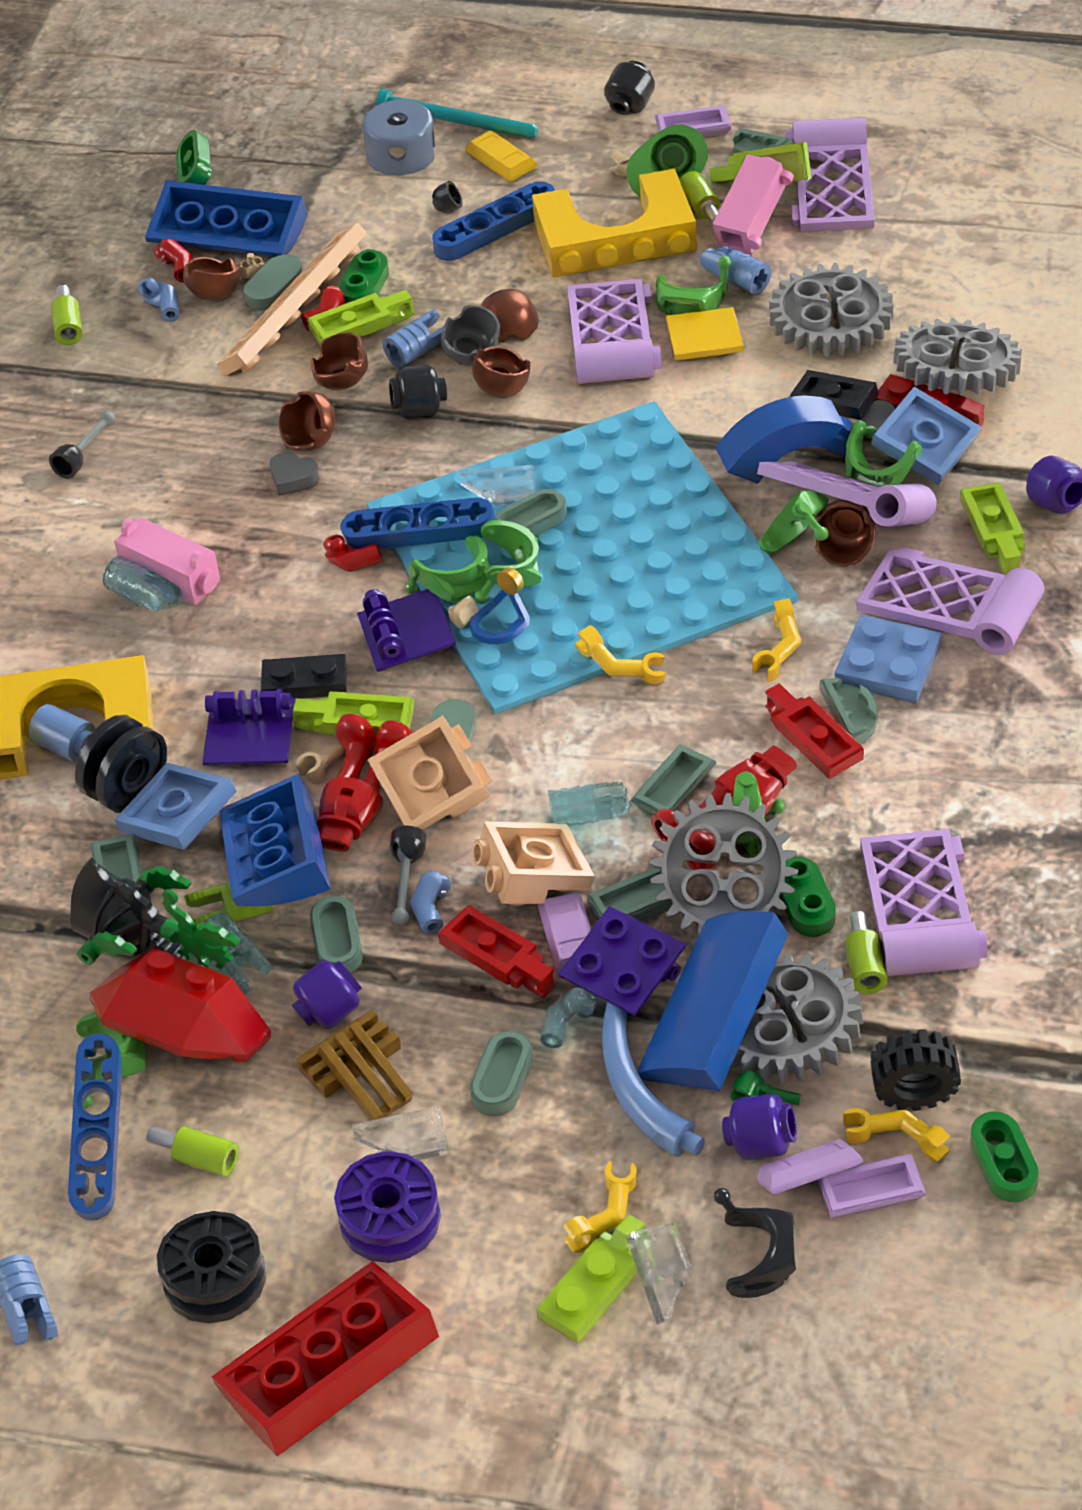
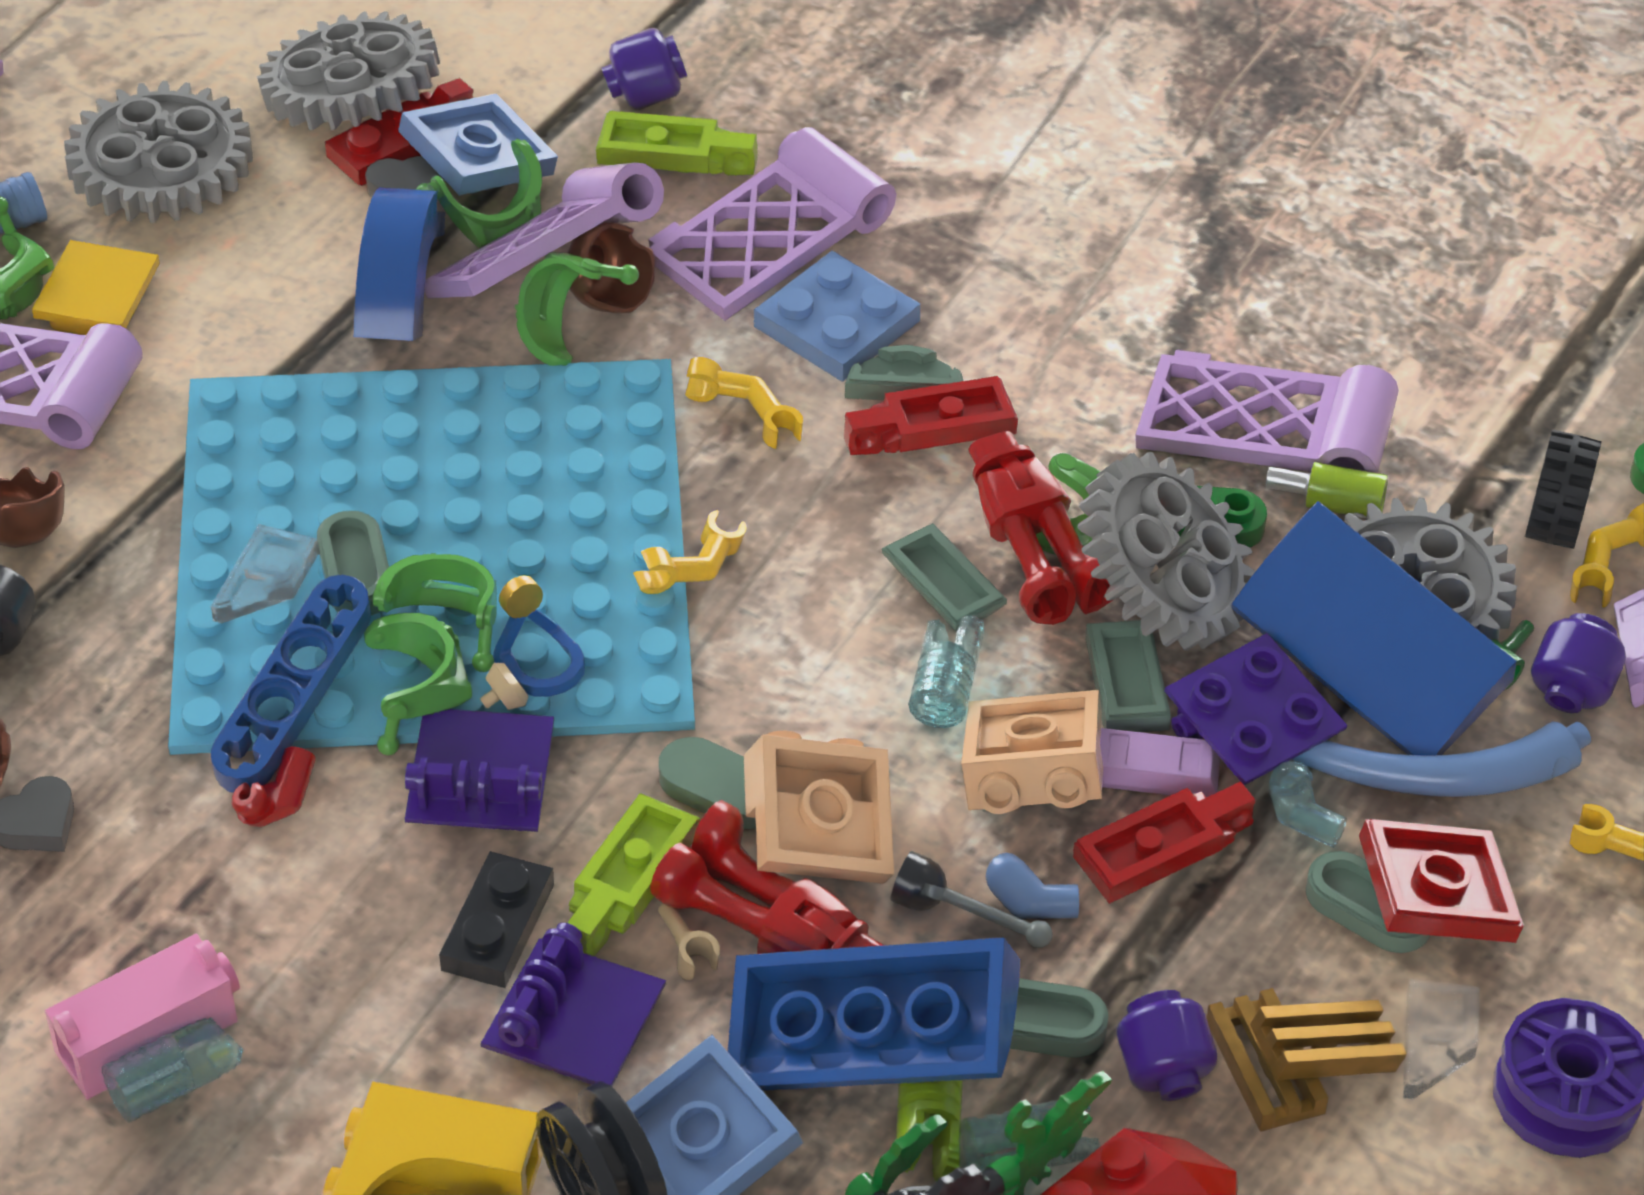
camera: 75 degrees left, 0 degrees up
(523, 1098) = (1440, 881): none -> red tile
(849, 395) = (329, 199): black plate -> none

